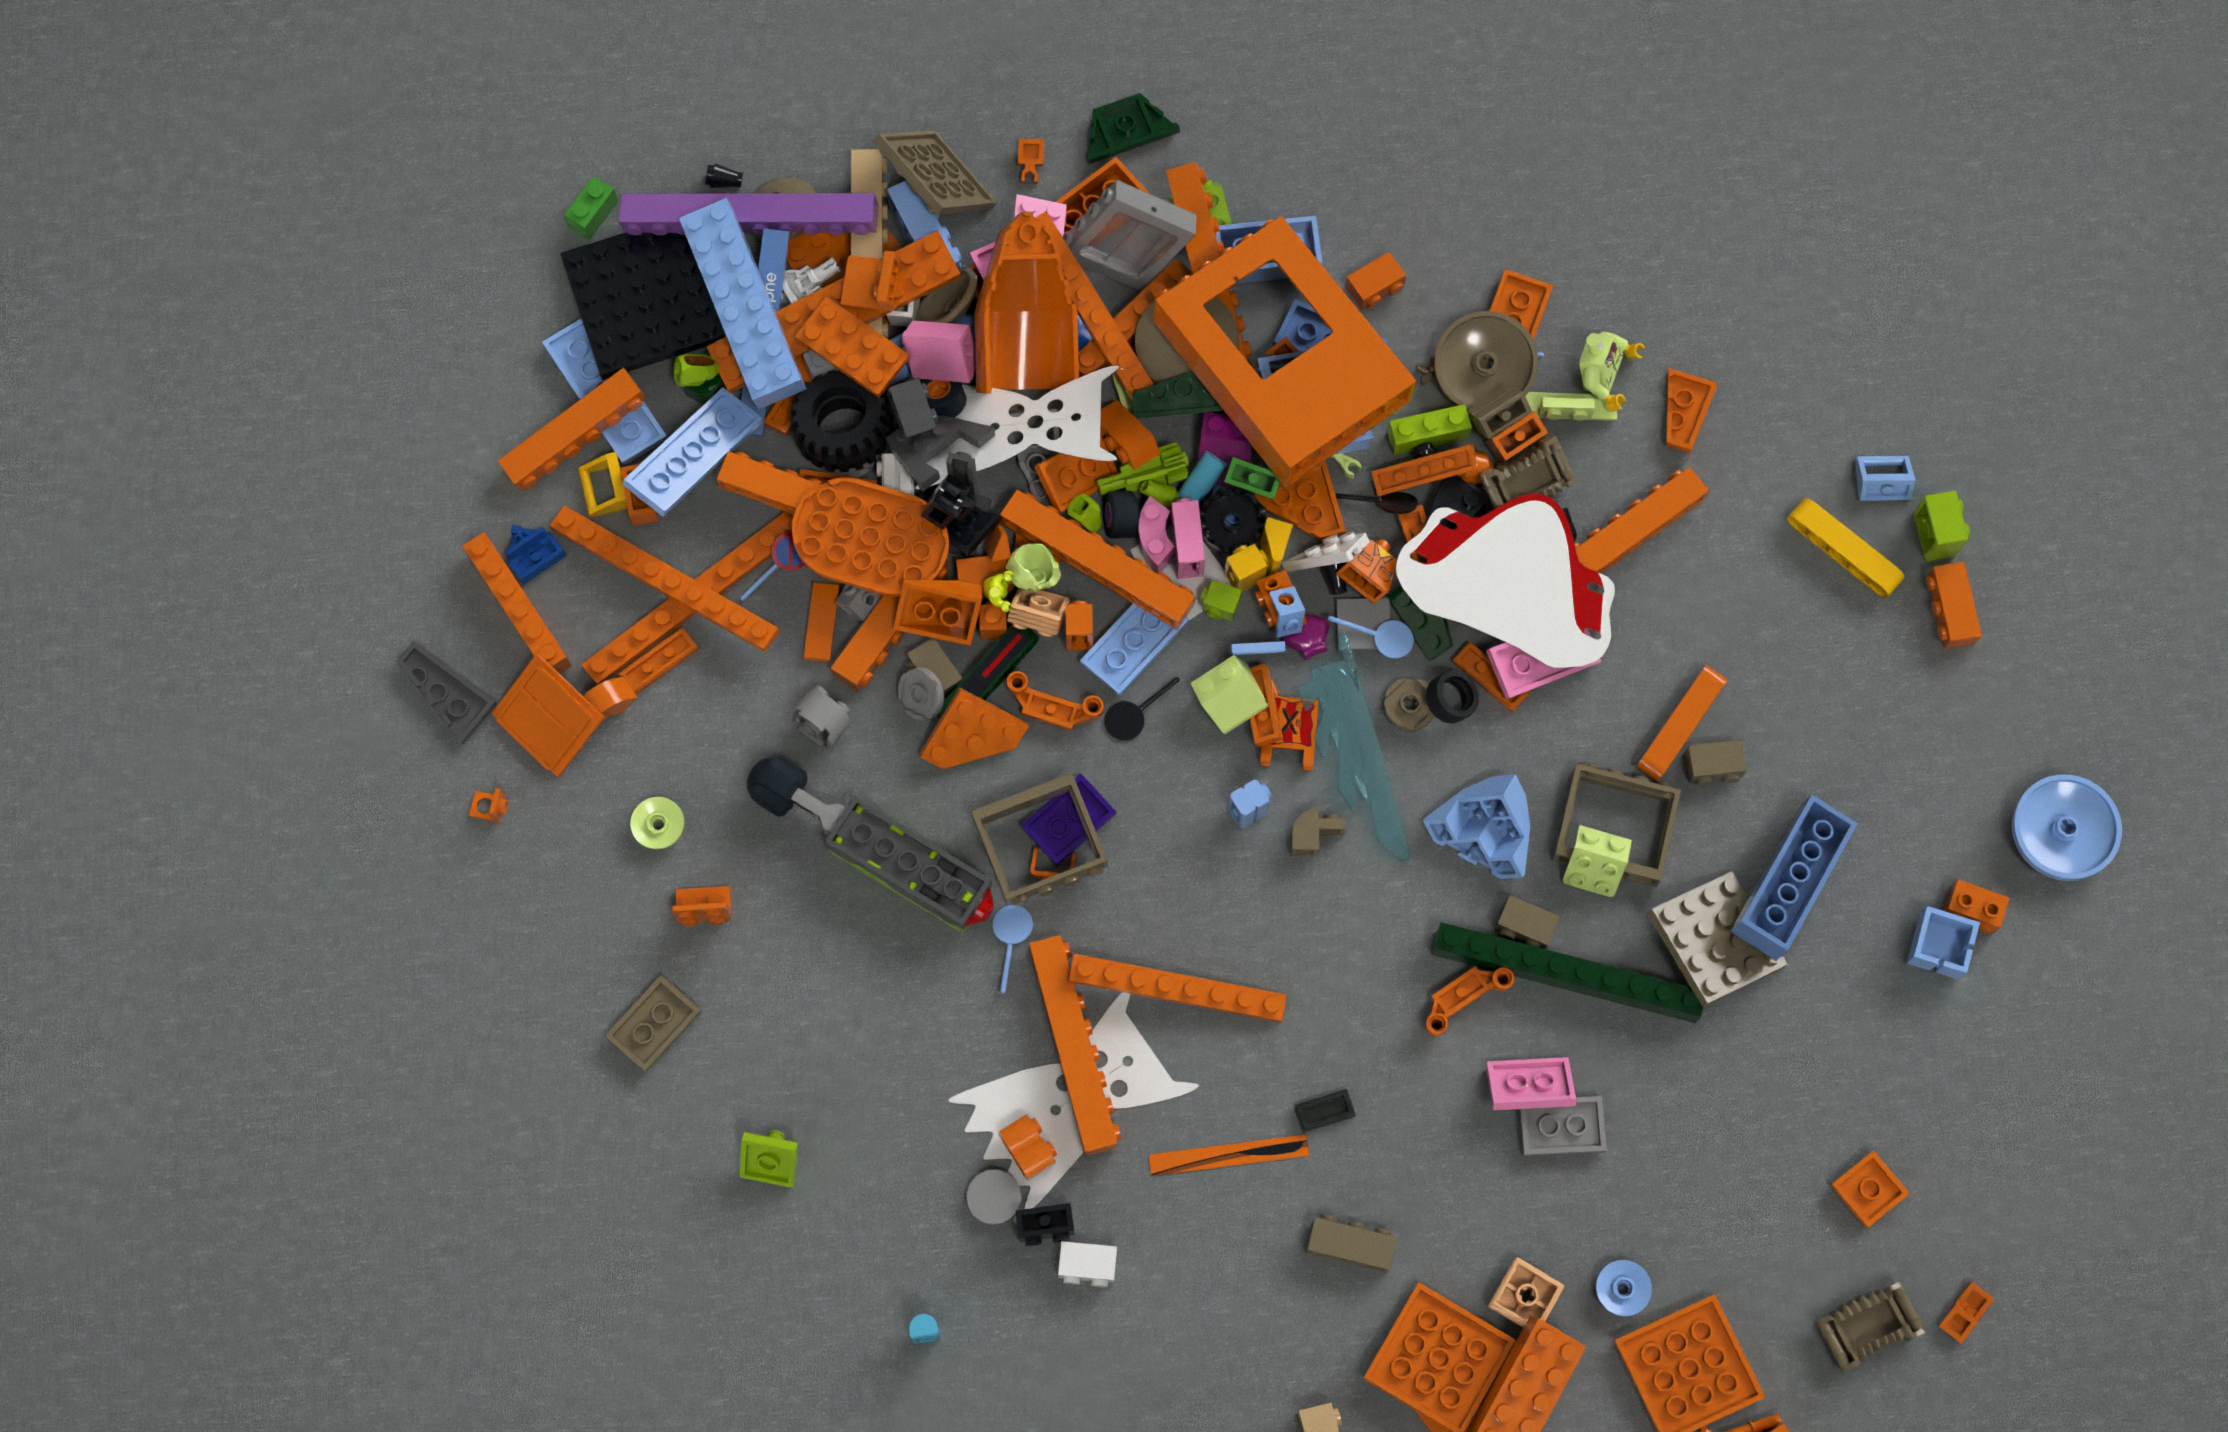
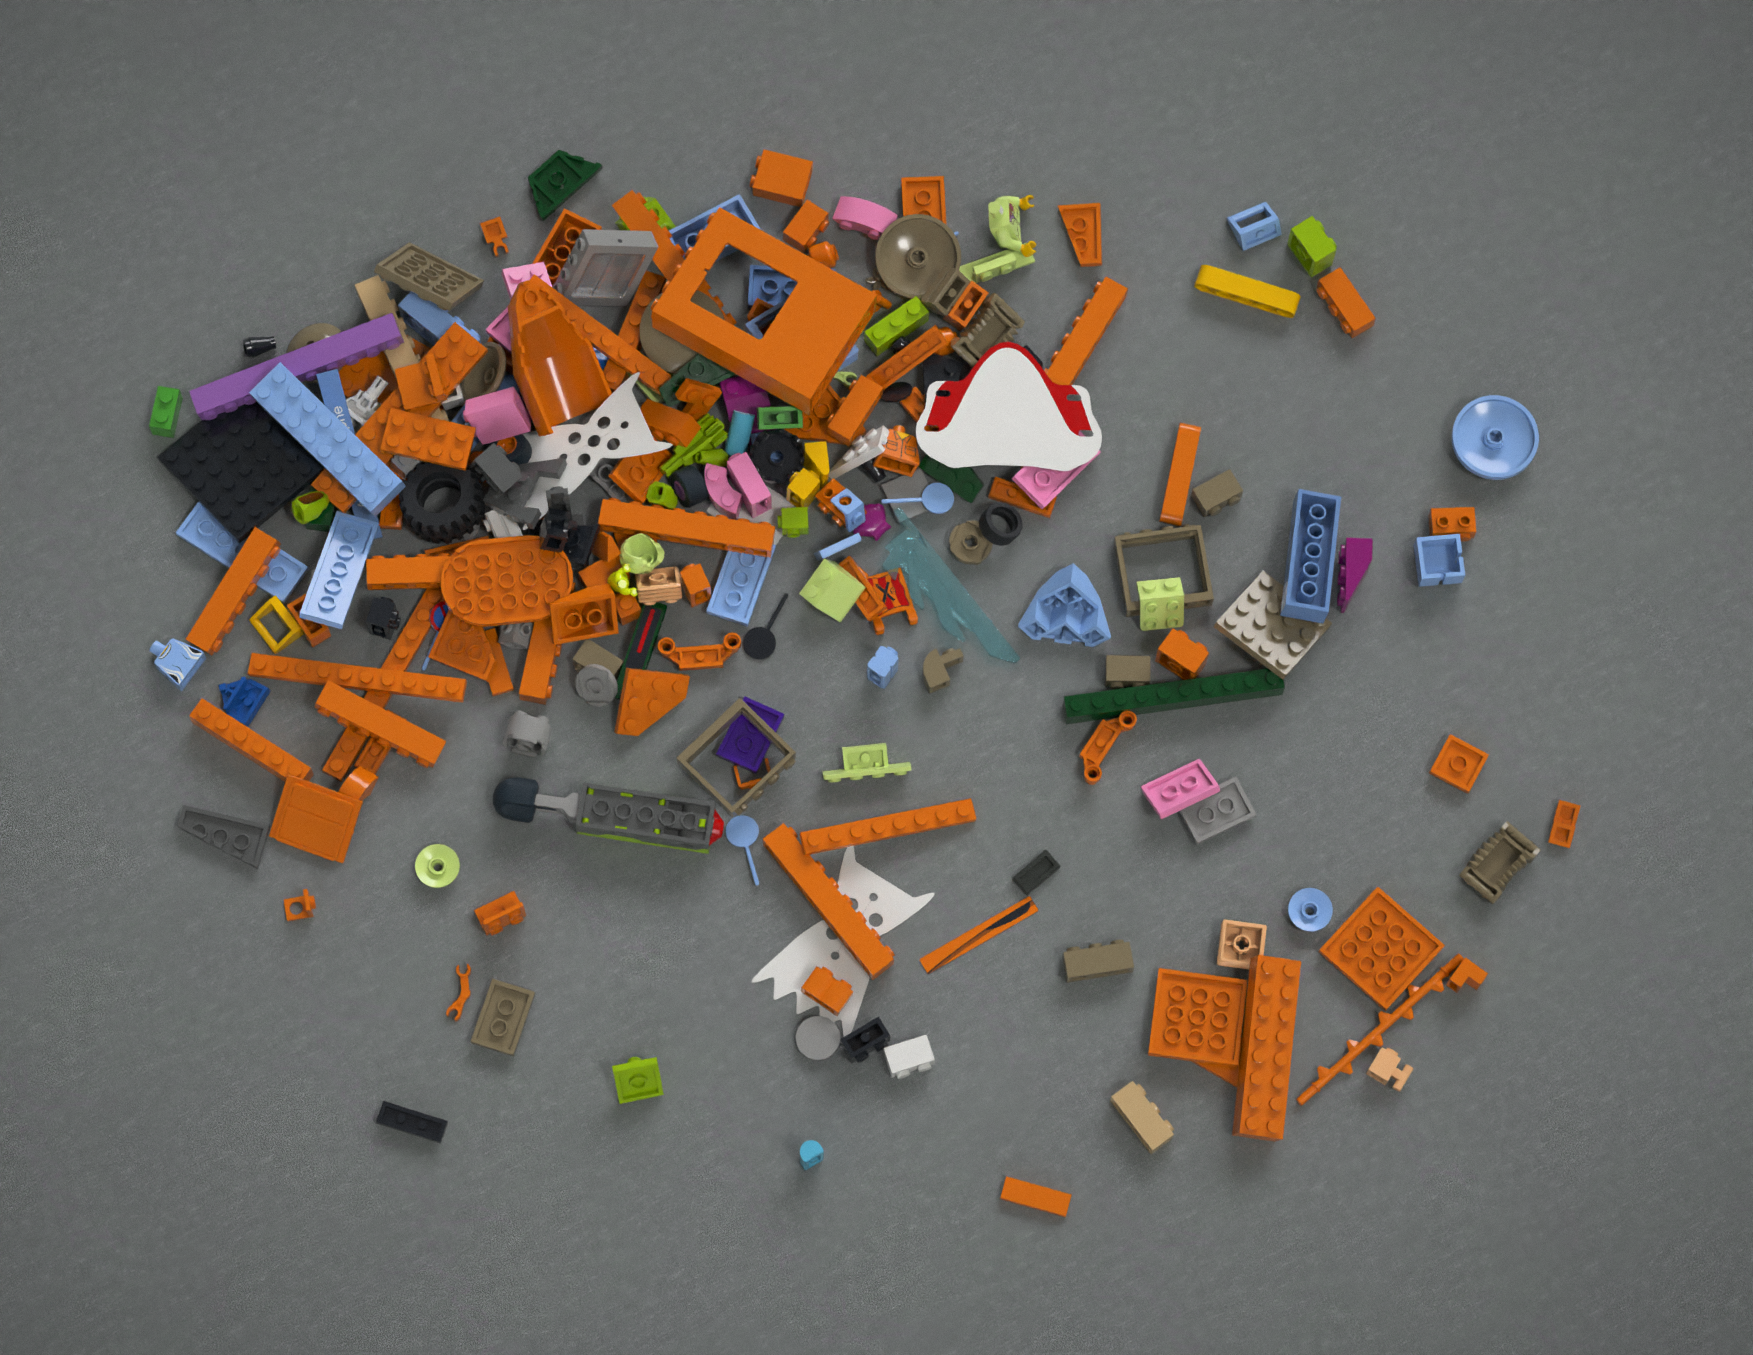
camera: 25 degrees left, 0 degrees up
(480, 482) = (177, 661): none -> light blue torso
(500, 1099) = (412, 1122): none -> black plate
(624, 979) = (464, 994): none -> orange piece
(663, 639) = (379, 724): none -> orange brick
(720, 523) = (383, 618): none -> black brick
(794, 594) = (464, 648): none -> orange plate
(1174, 420) = (699, 397): none -> orange plate
(1185, 903) = (865, 761): none -> yellowish green bracket
(1341, 503) = (854, 410): none -> orange brick
(1372, 218) = (781, 178): none -> orange brick
(1382, 319) = (824, 253): none -> orange head
(1422, 395) = (881, 301): none -> orange plate
(1443, 294) = (863, 216): none -> bright pink brick
(1597, 930) = (1182, 655): none -> orange brick
(1844, 904) = (1355, 561): none -> magenta slope

